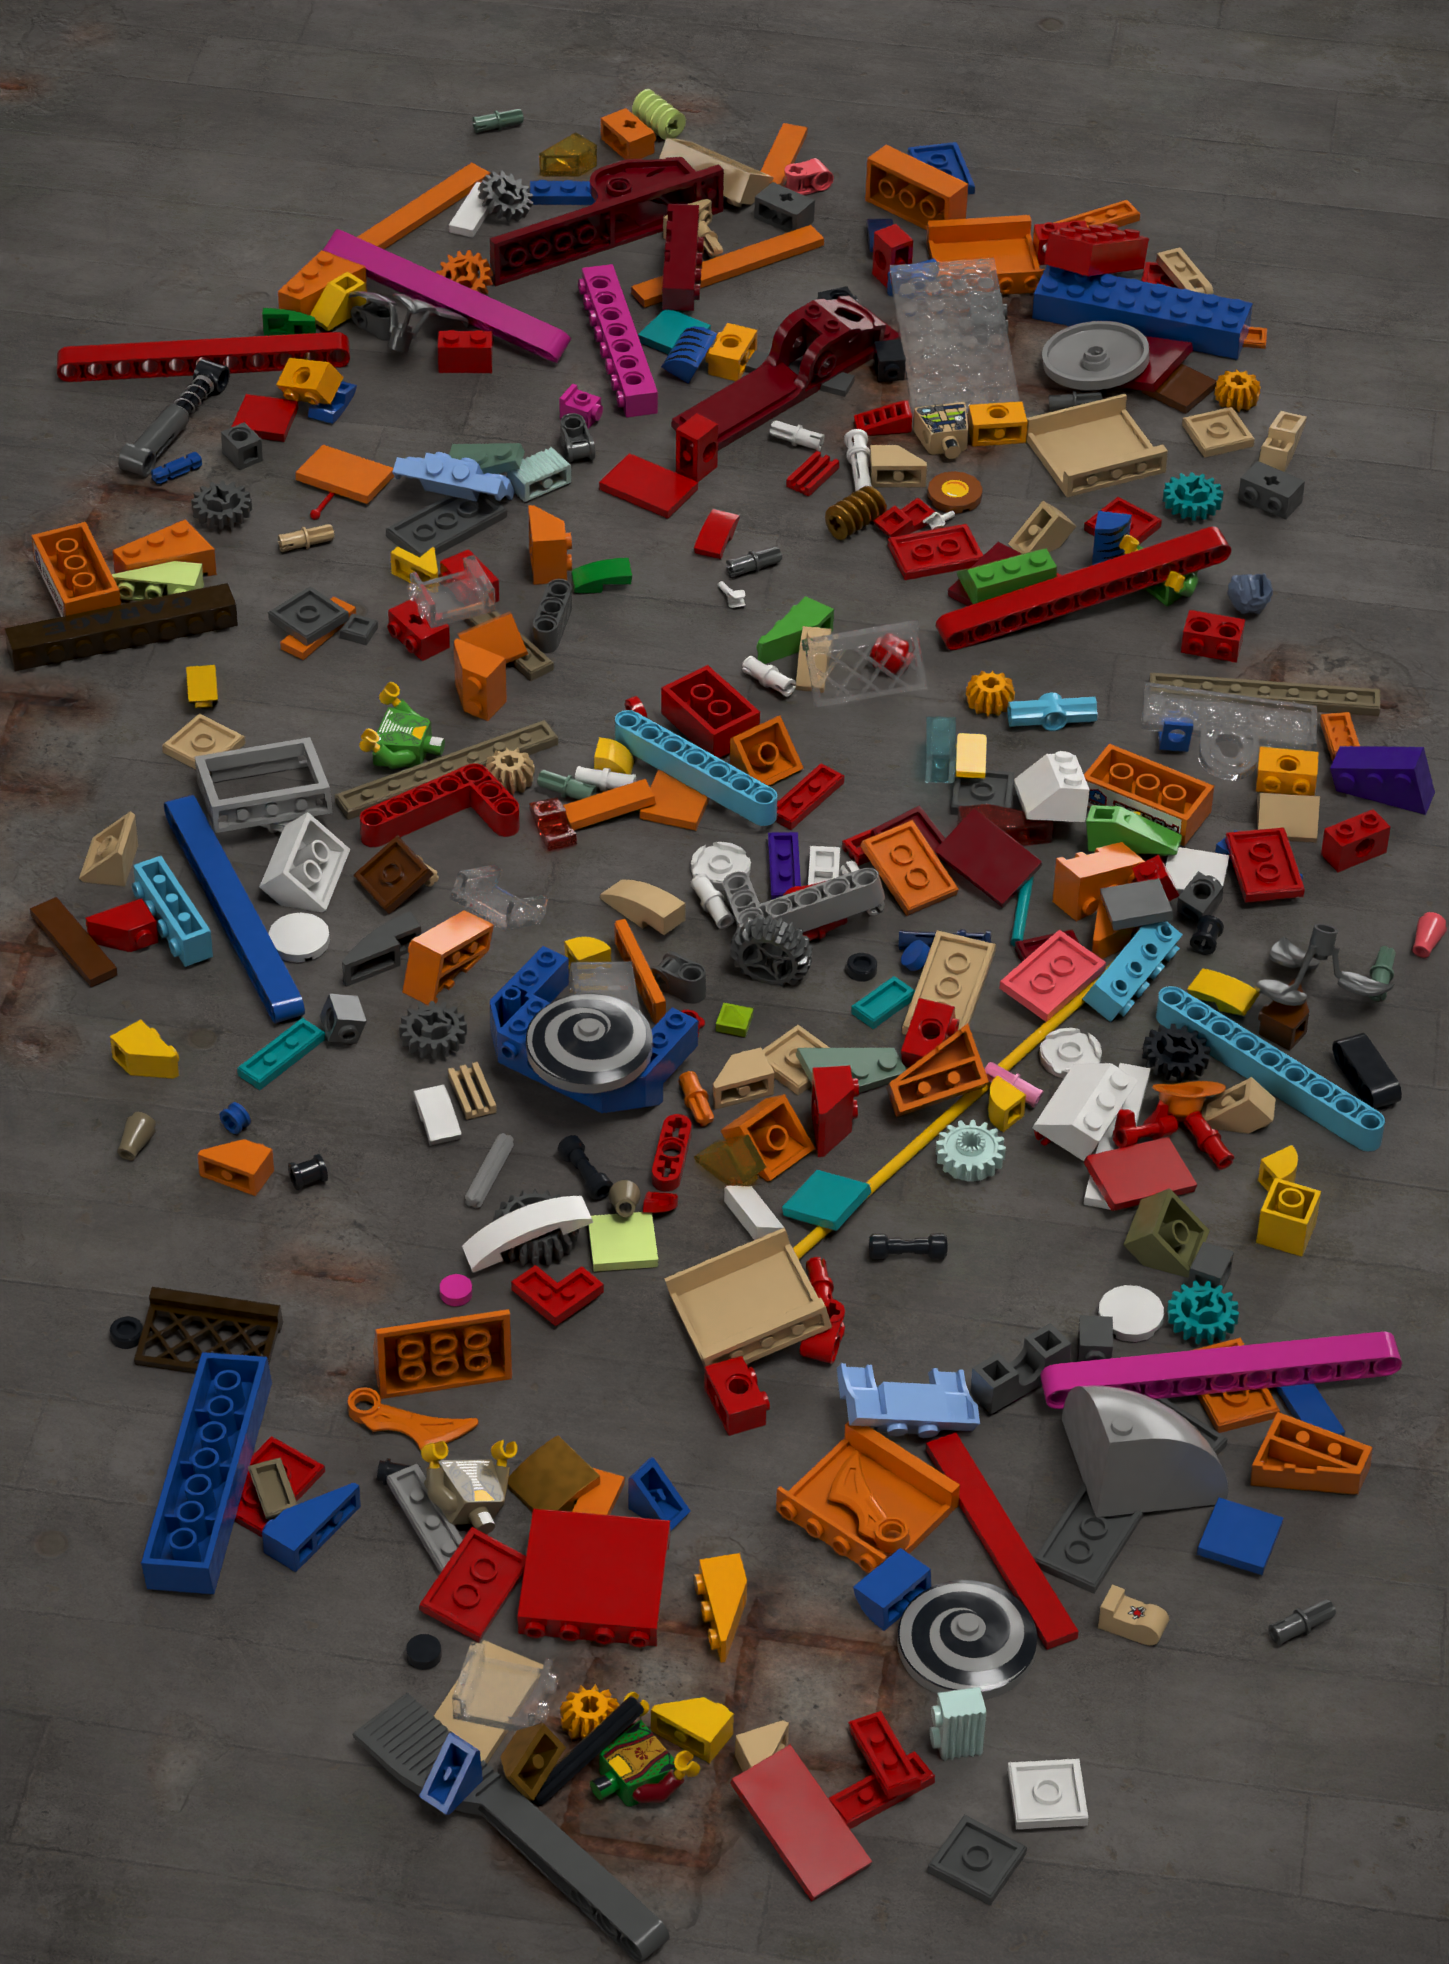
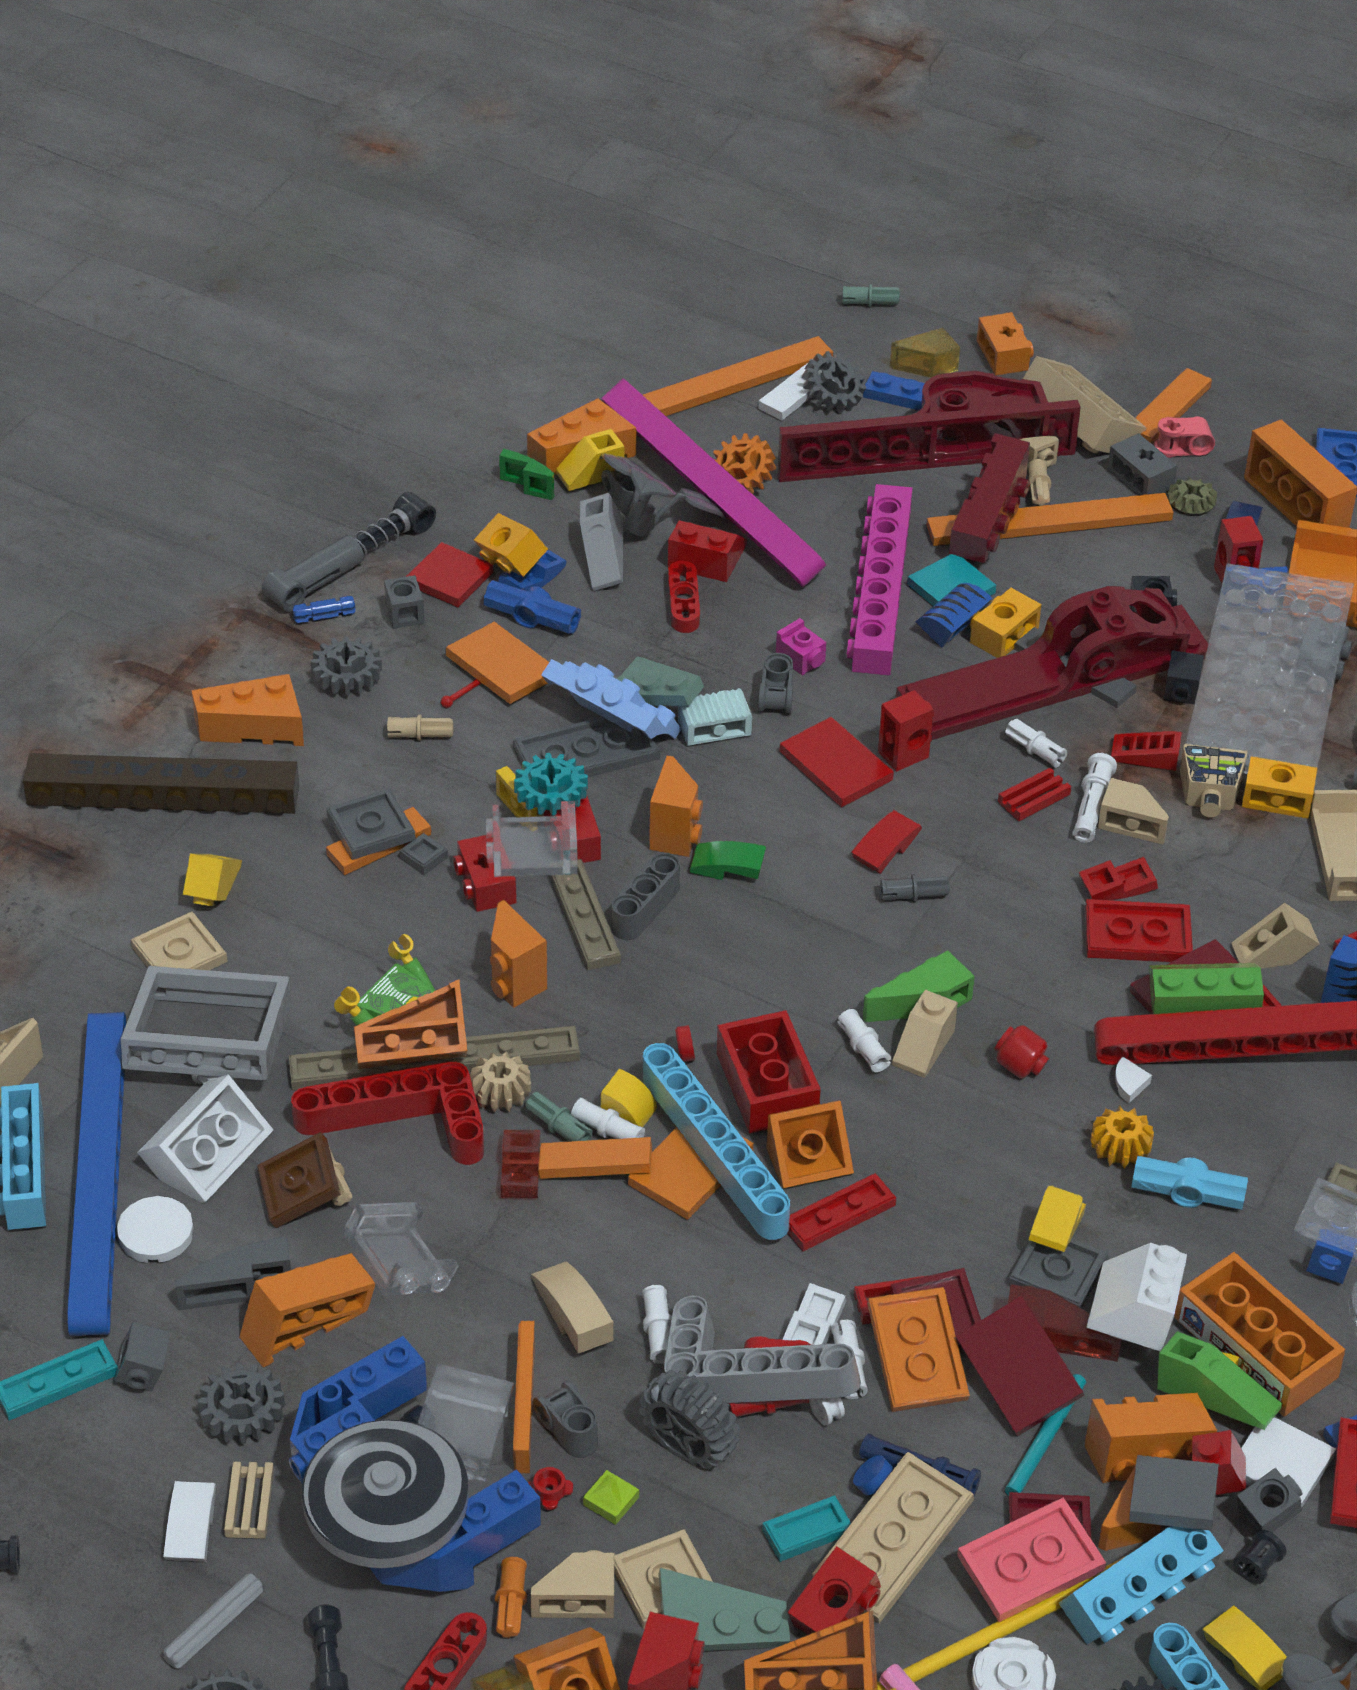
camera: 20 degrees right, 0 degrees up
(74, 570) = (143, 704): orange brick -> none
(159, 580) = (230, 739): yellowish green slope -> none
(182, 356) = (446, 492): red beam -> none
(348, 426) = (532, 607): none -> blue piece
(381, 362) = (603, 540): none -> light grey slope
(434, 749) = (415, 1032): none -> orange wedge
(443, 549) = (550, 782): none -> teal gear
(464, 399) = (679, 605): none -> red beam
(497, 636) = (561, 910): orange slope -> none
(587, 950) = (472, 1352): yellow brick -> none
(658, 114) = (1047, 328): yellowish green piece -> none
(719, 861) = (694, 1272): white tile -> none
(735, 598) = (872, 928): white hand -> none
(783, 862) = (770, 1297): dark purple tile -> none
(838, 225) = (1190, 502): none -> olive gear
(854, 512) = (1058, 854): pearl gold piece -> none
(861, 638) = (981, 1025): clear fence -> none
(861, 922) = (827, 1408): none -> white bush
(861, 967) = (802, 1469): black tile -> none
(937, 521) = (1156, 892): white hand -> none
(940, 749) = (1024, 1195): clear light blue brick -> none
(954, 492) = (1193, 860): dark orange tile -> none
(977, 654) = (1130, 1079): none -> white tile

